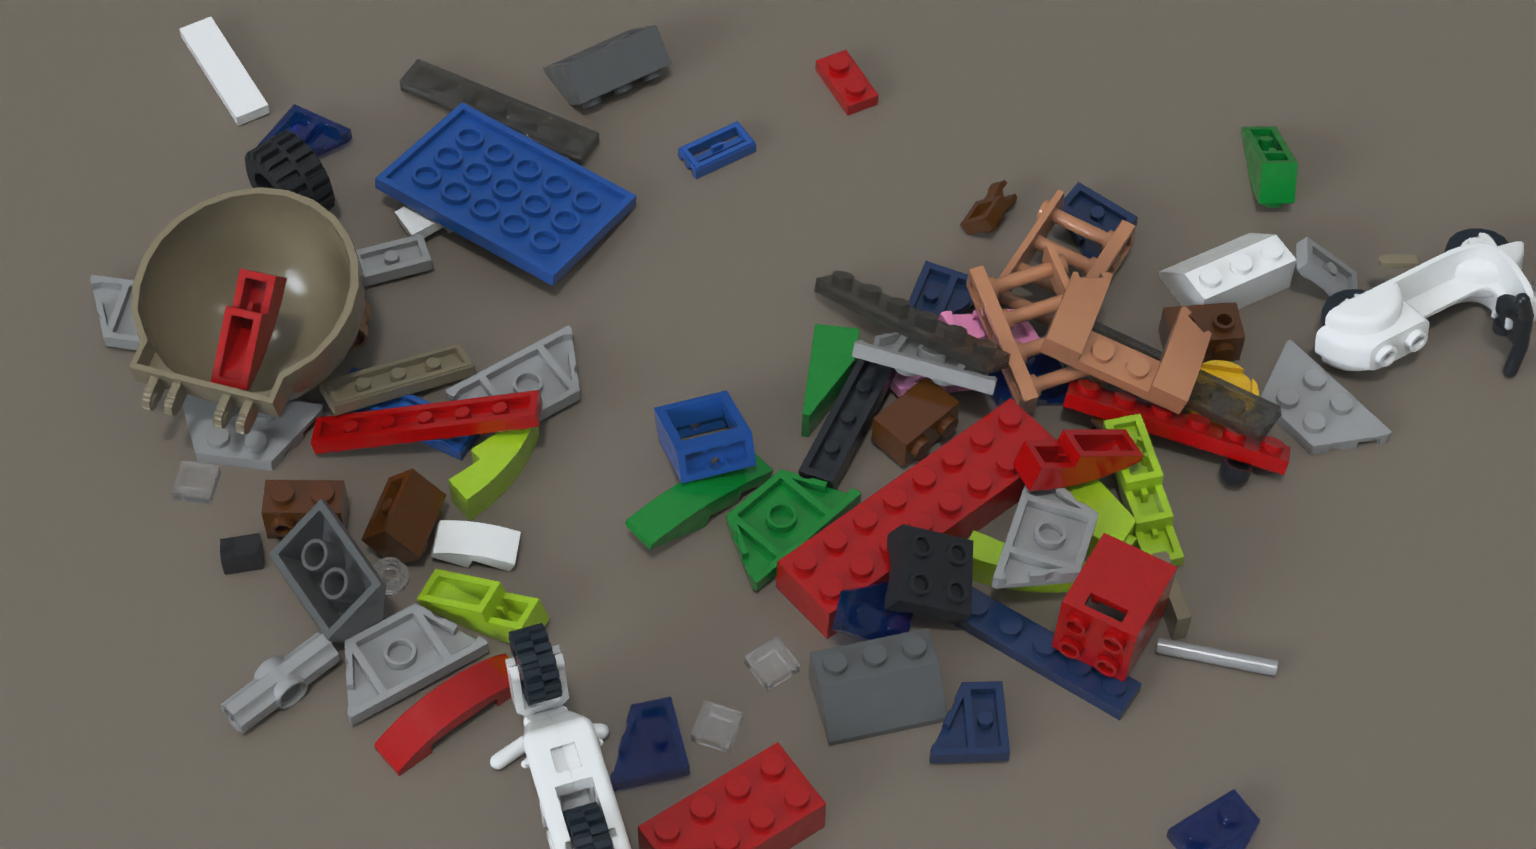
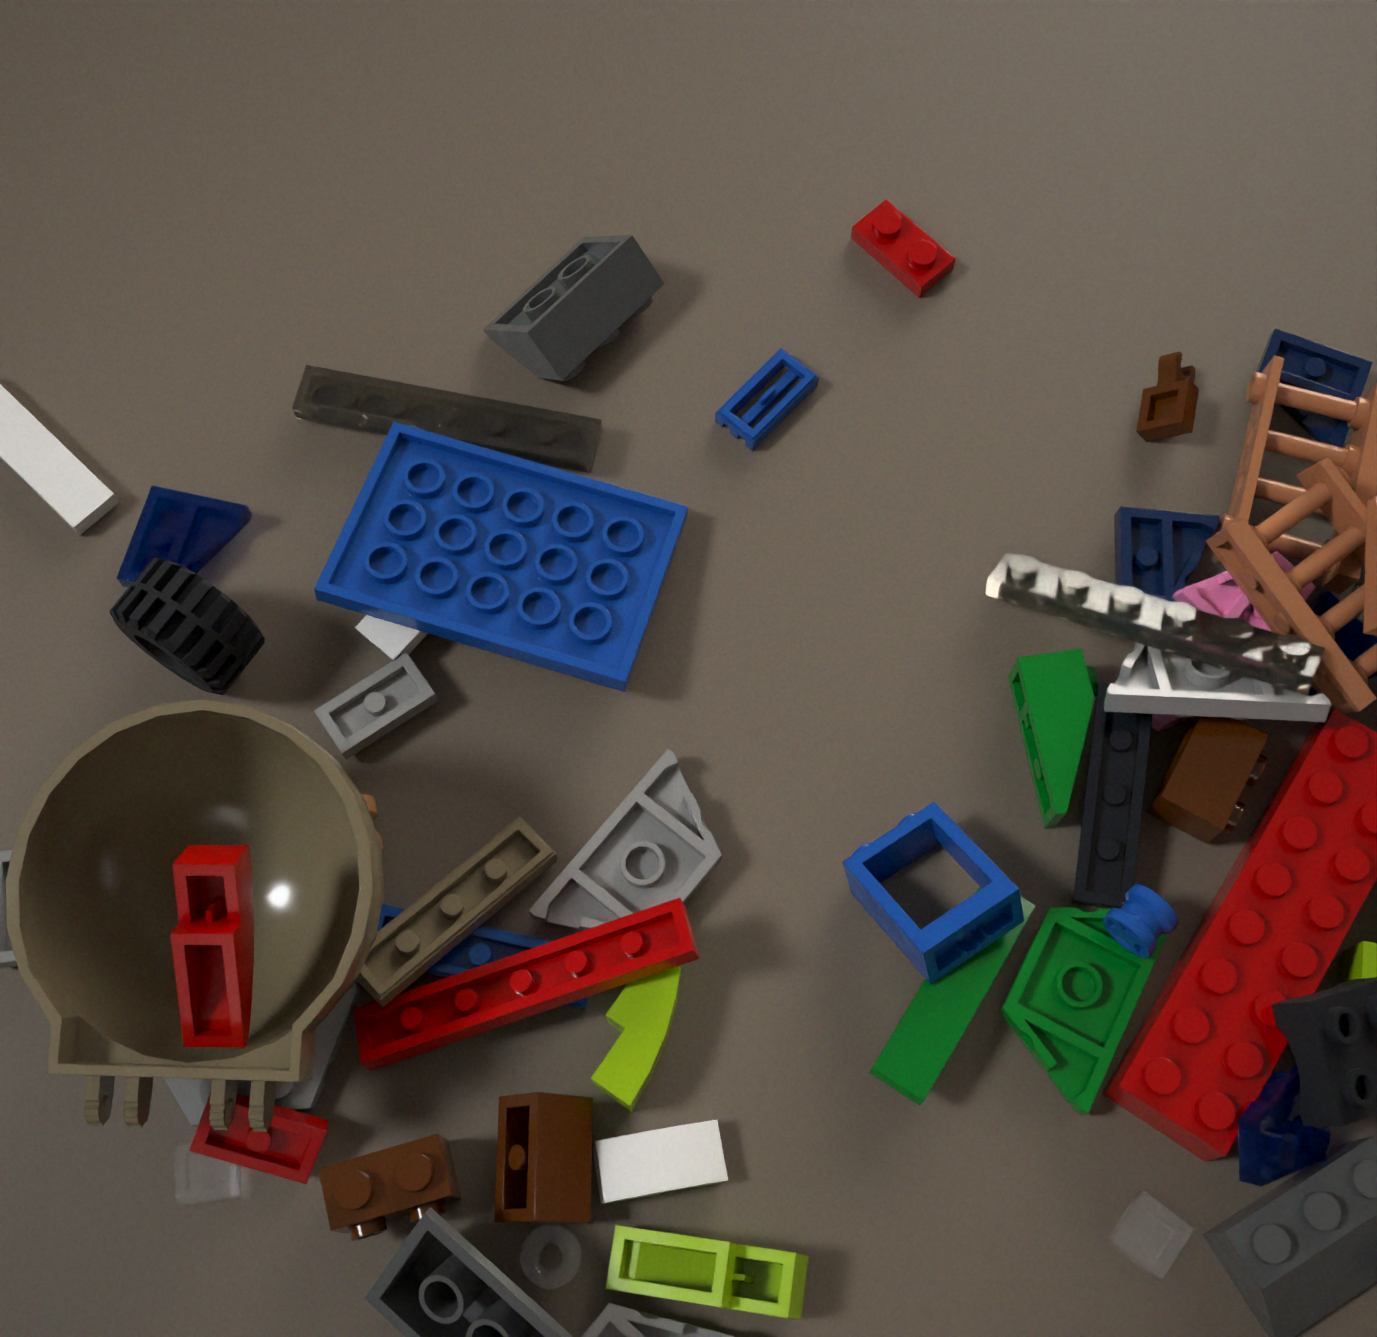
camera: 15 degrees left, 15 degrees up
(234, 463) = (284, 1150): none -> red plate
(241, 553) = (314, 1278): black slope -> none
(830, 482) = (1140, 921): none -> blue wheel

